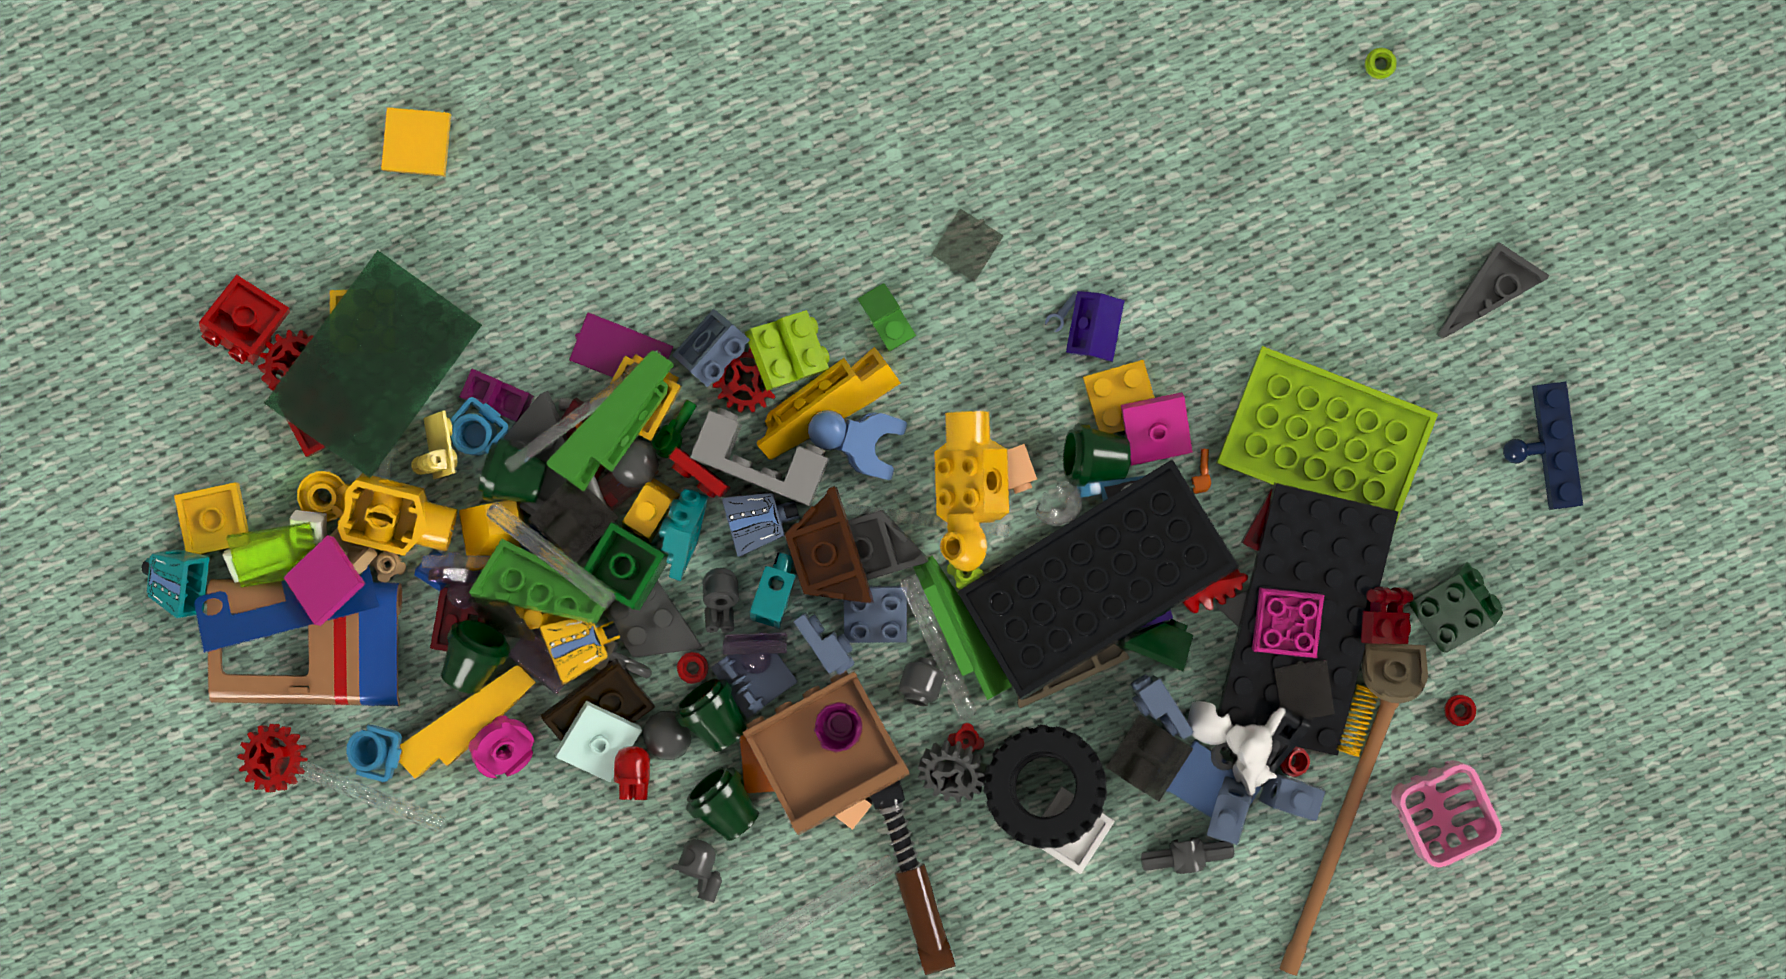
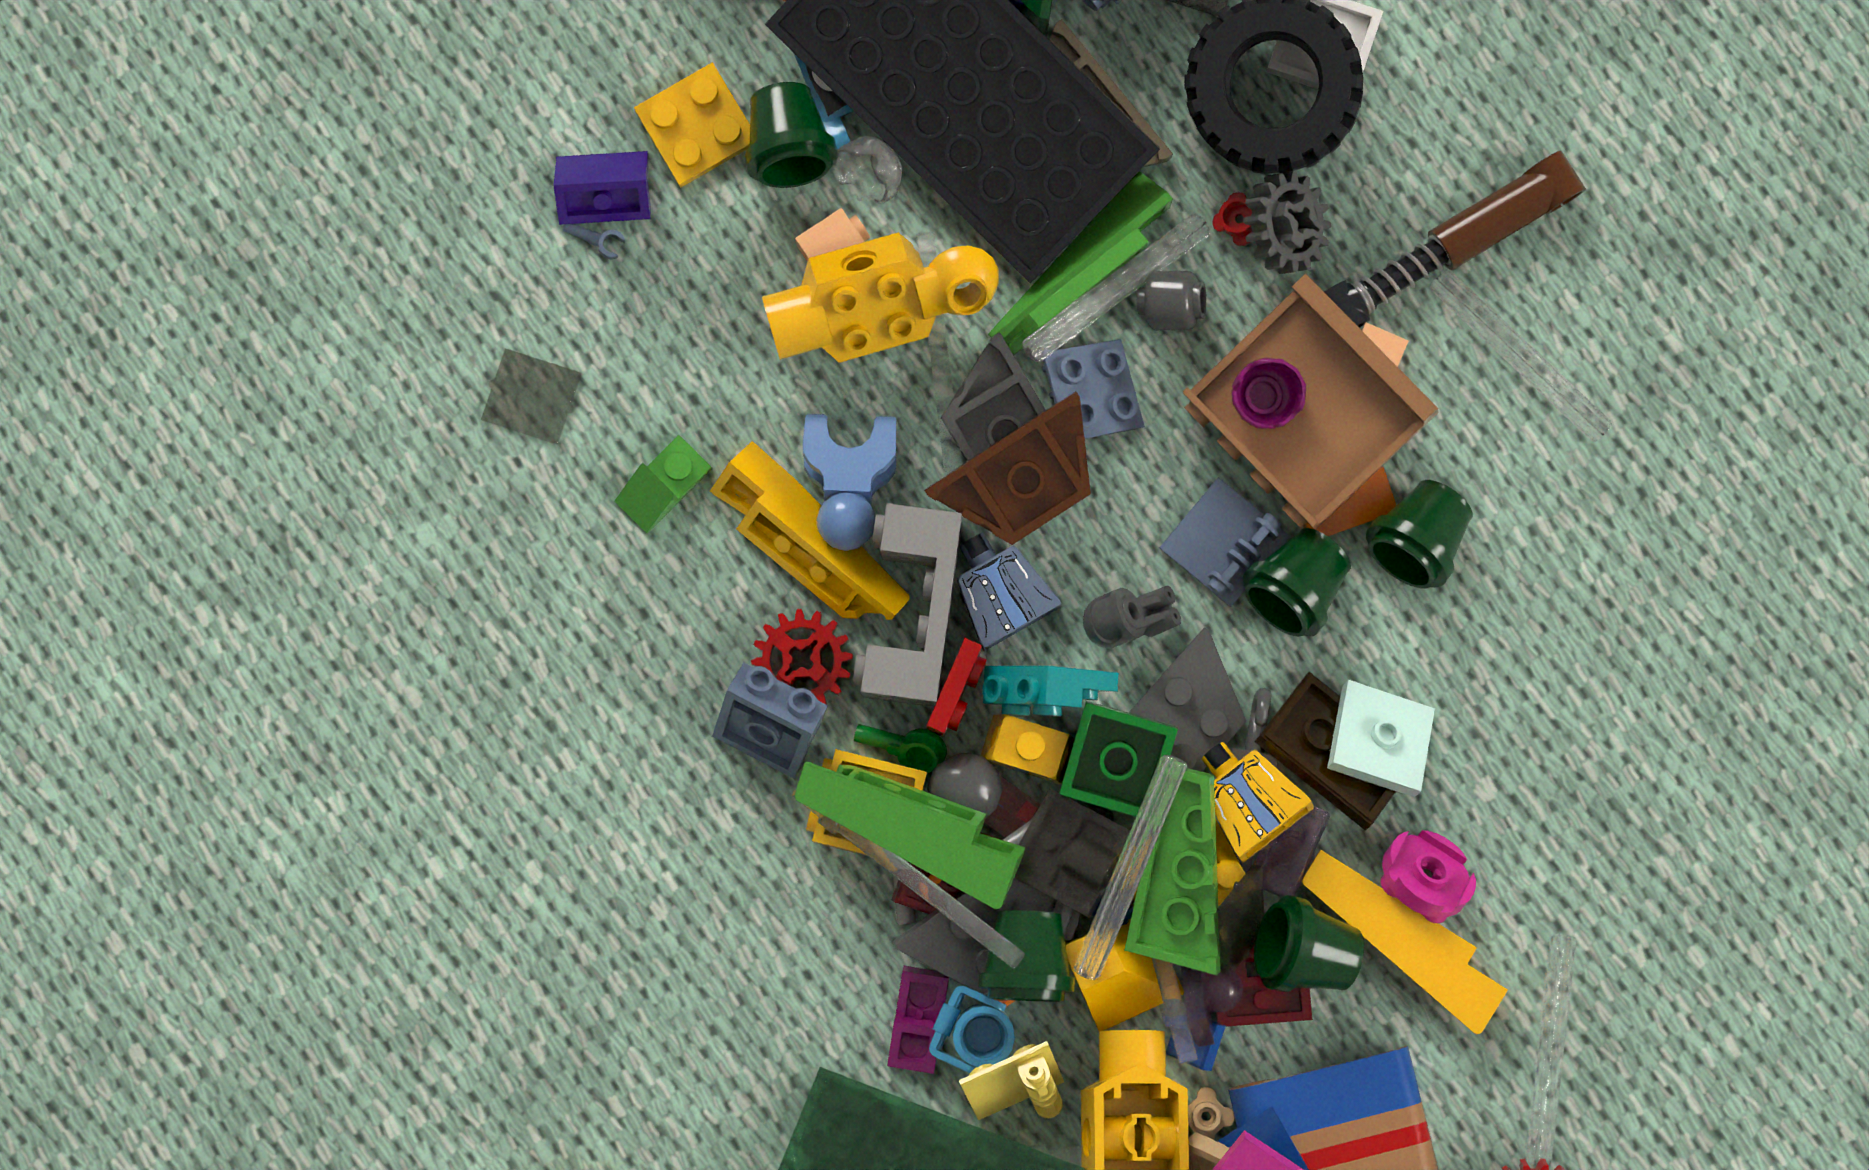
camera: 100 degrees left, 5 degrees down
(375, 750) = (1482, 1060): dark azure piece -> none
(604, 345) = (803, 876): magenta piece -> none
(632, 773) = (1412, 676): red piece -> none
(665, 736) = (1346, 645): dark grey hair -> none
(682, 667) = (1252, 626): red plate -> none
(697, 862) = (1514, 551): dark grey piece -> none
(755, 649) = (1187, 545): clear purple tile -> none
(768, 604) = (1119, 543): teal torso -> none
(787, 350) = (745, 608): lime plate -> none
(831, 650) = (1158, 436): sand blue plate -> none
(964, 580) = (1011, 281): lime plate -> none
(1157, 428) = (724, 61): dark pink plate -> none

